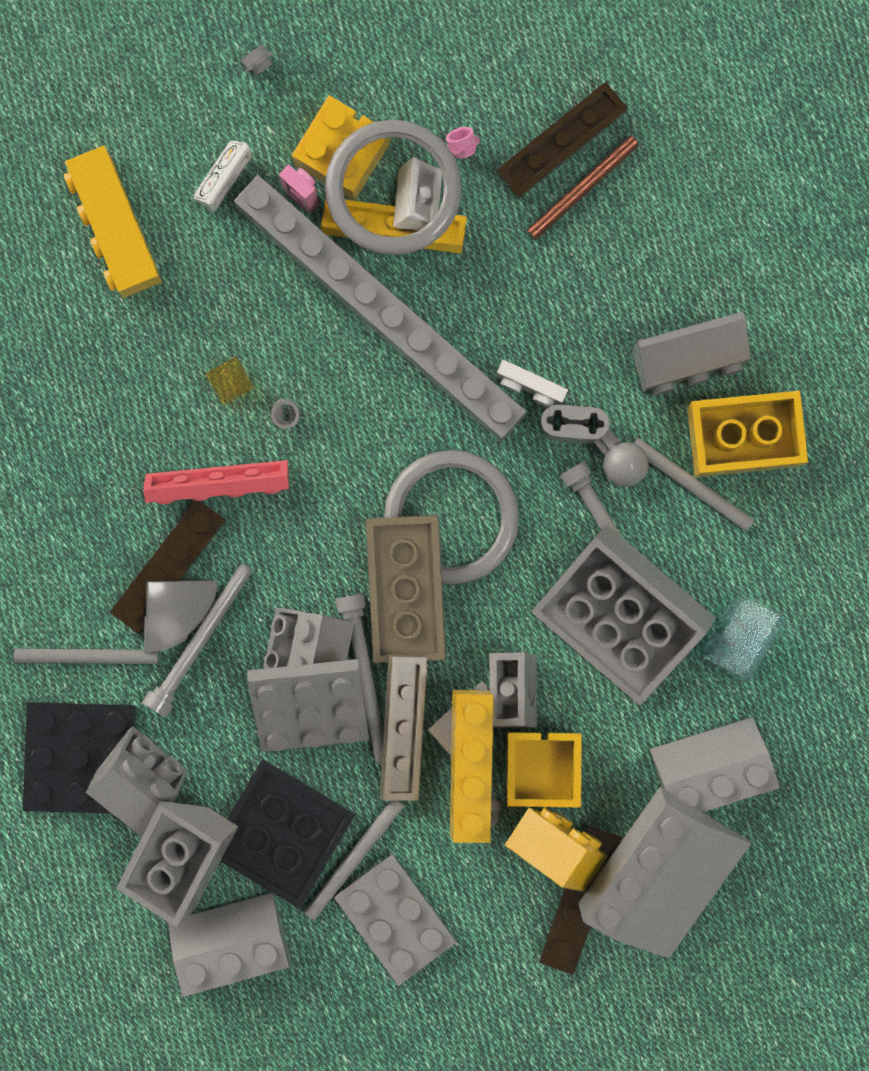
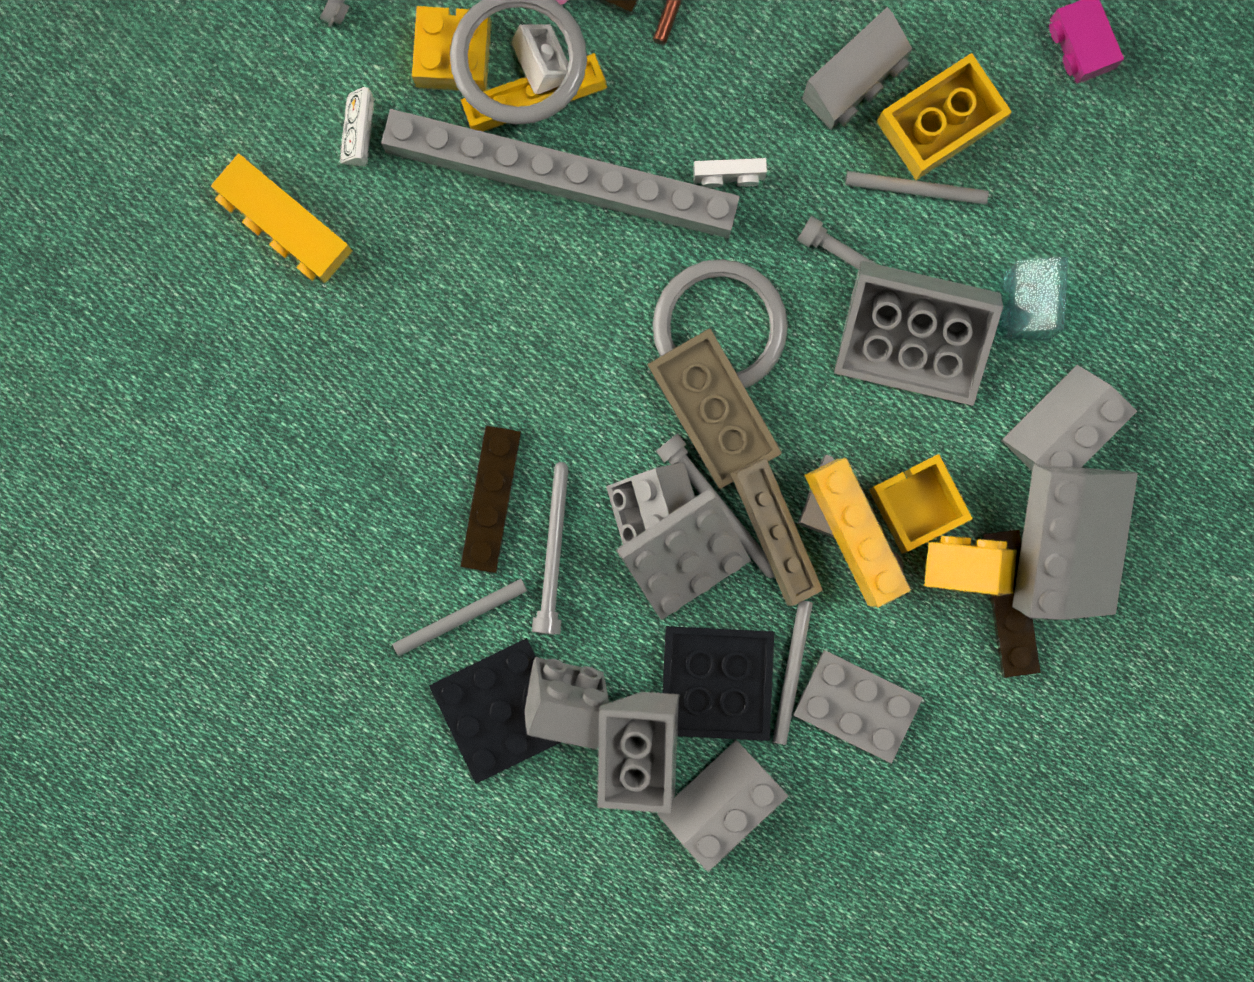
camera: 30 degrees left, 0 degrees up
(175, 611) = (519, 535): light grey brick -> none
(216, 481) = (495, 401): coral plate -> none
(229, 381) = (459, 307): clear yellow plate -> none
(277, 413) = (532, 306): light grey hinge -> none
(300, 187) = (434, 102): bright pink plate -> none
(514, 690) = (853, 439): light grey brick -> none
(623, 461) = (847, 198): light grey beam -> none

